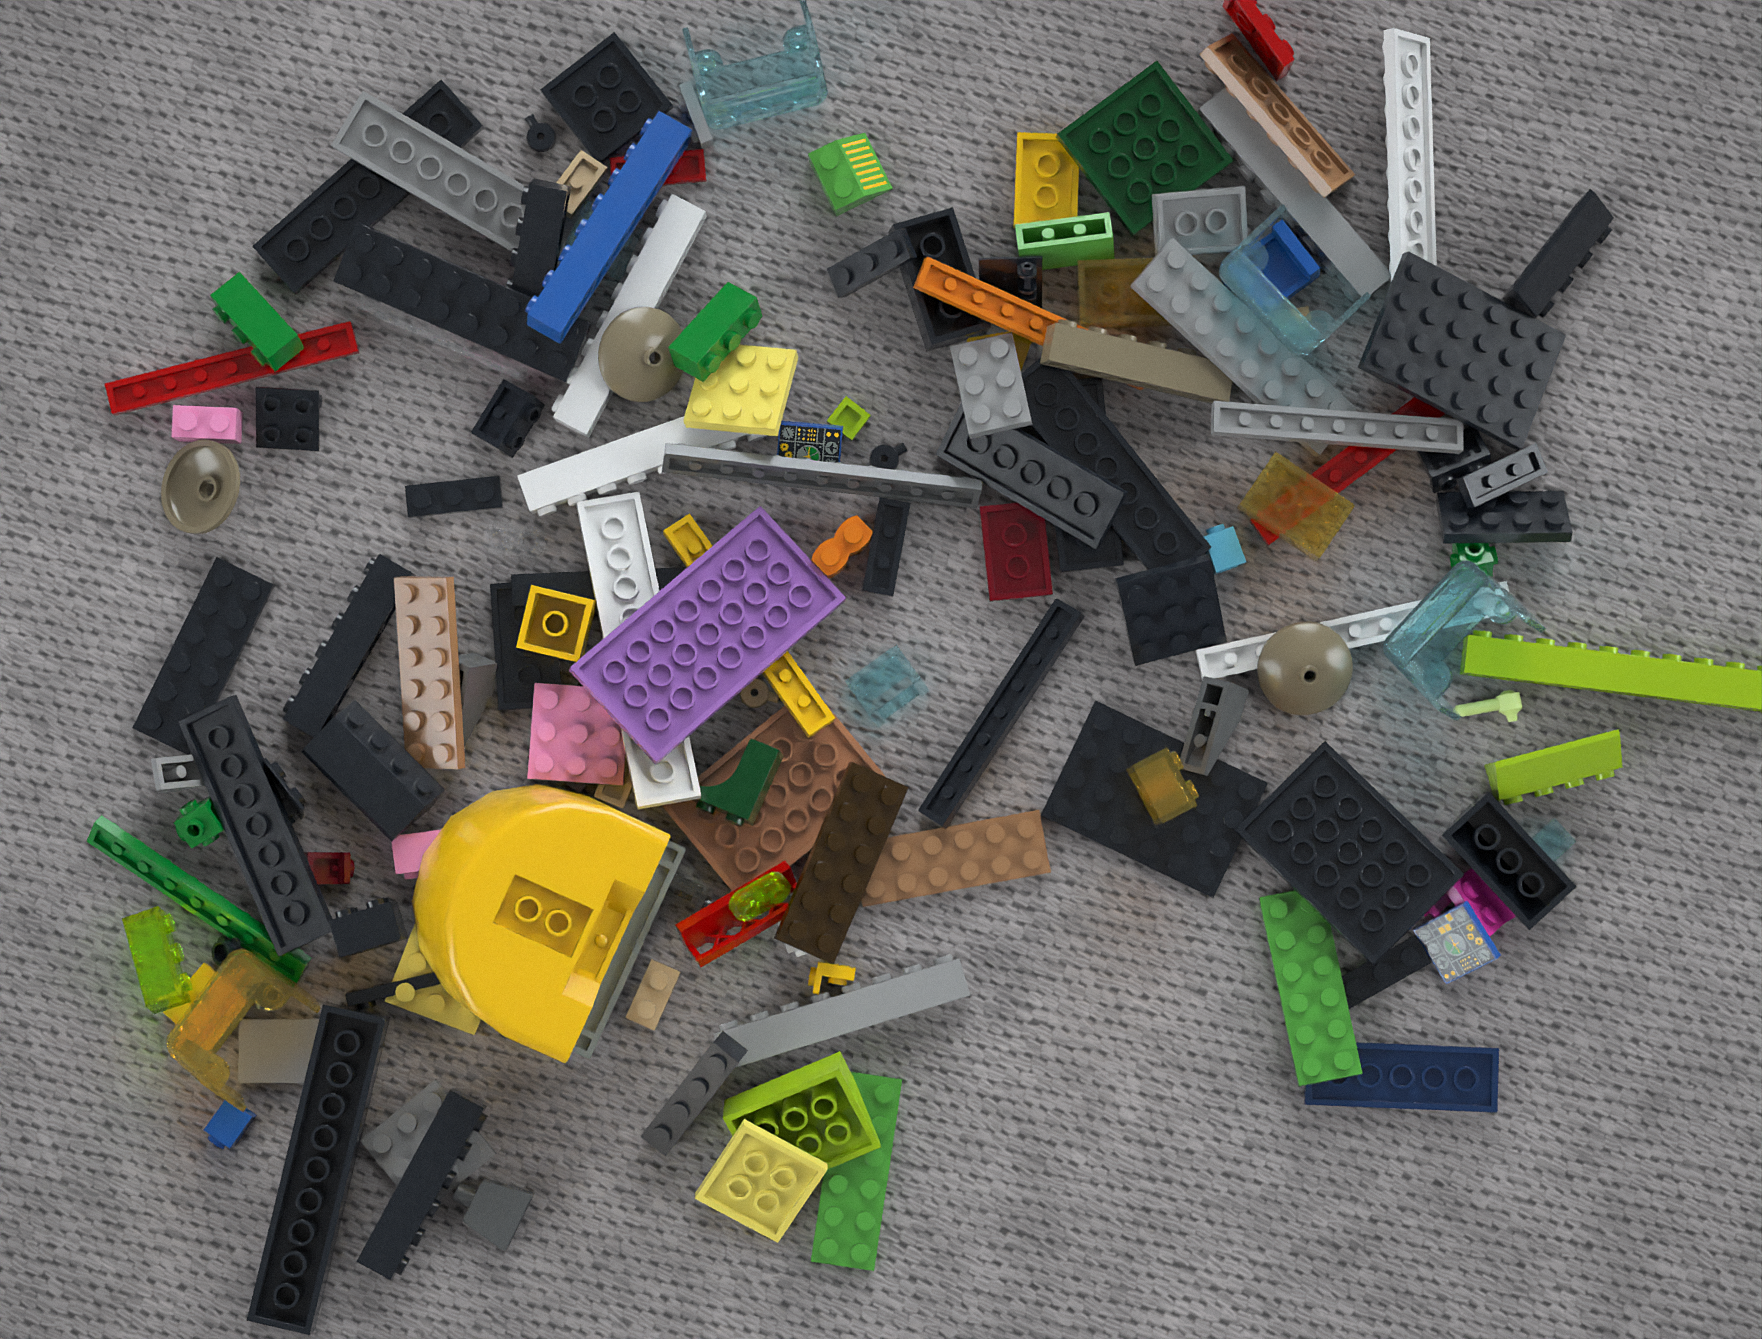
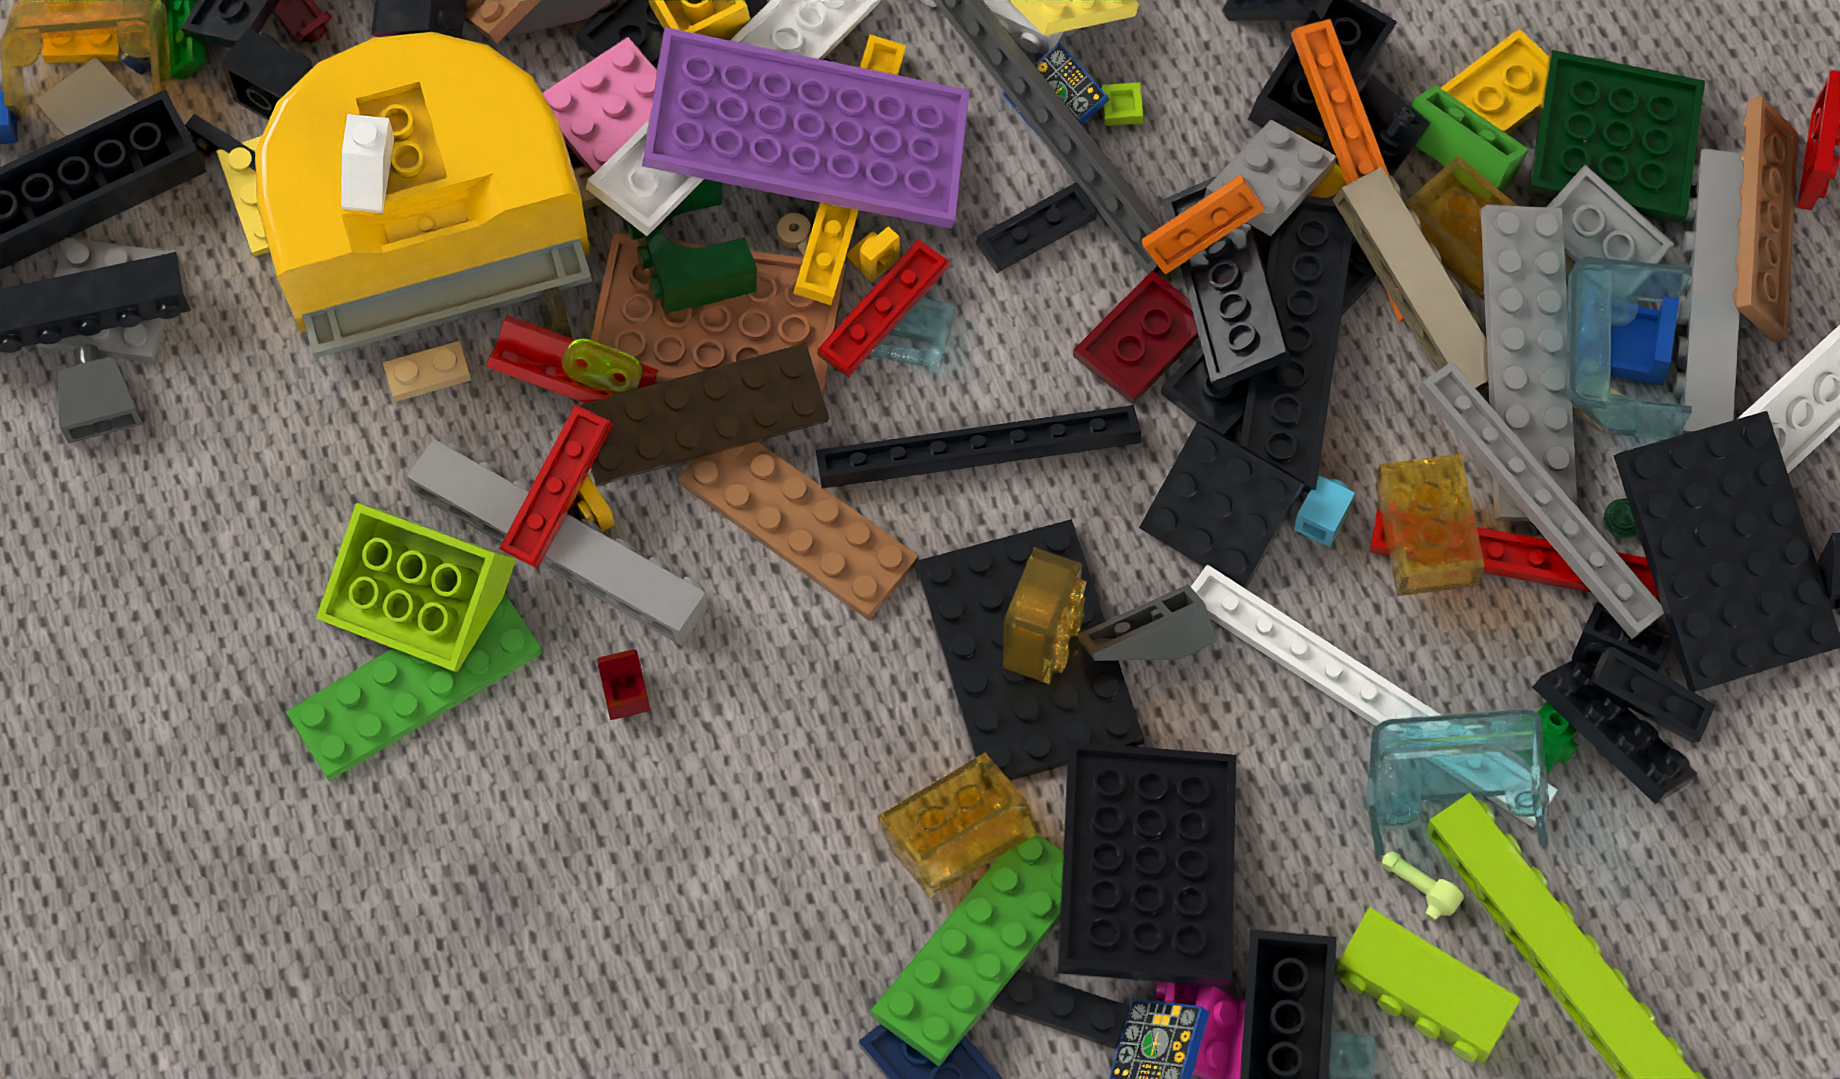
camera: 50 degrees right, 20 degrees down
(548, 955) = (365, 163): none -> white slope
(694, 1093) = (359, 463): black brick -> none
(761, 1181) = (325, 592): light yellow plate -> none
(816, 661) = (875, 253): none -> yellow bracket
(818, 991) = (556, 486): none -> red tile
(848, 541) = (996, 187): orange brick -> none
(862, 690) = (883, 308): none -> red tile
(888, 451) = (1126, 164): black piece -> none
(971, 1053) = (623, 684): none -> dark red bracket
(992, 460) = (1203, 224): none -> orange plate
(1232, 940) = (957, 824): none -> clear yellow brick
(1296, 651) = (1311, 693): dark tan dish -> none
(1376, 386) = (1619, 519): none -> clear green plate

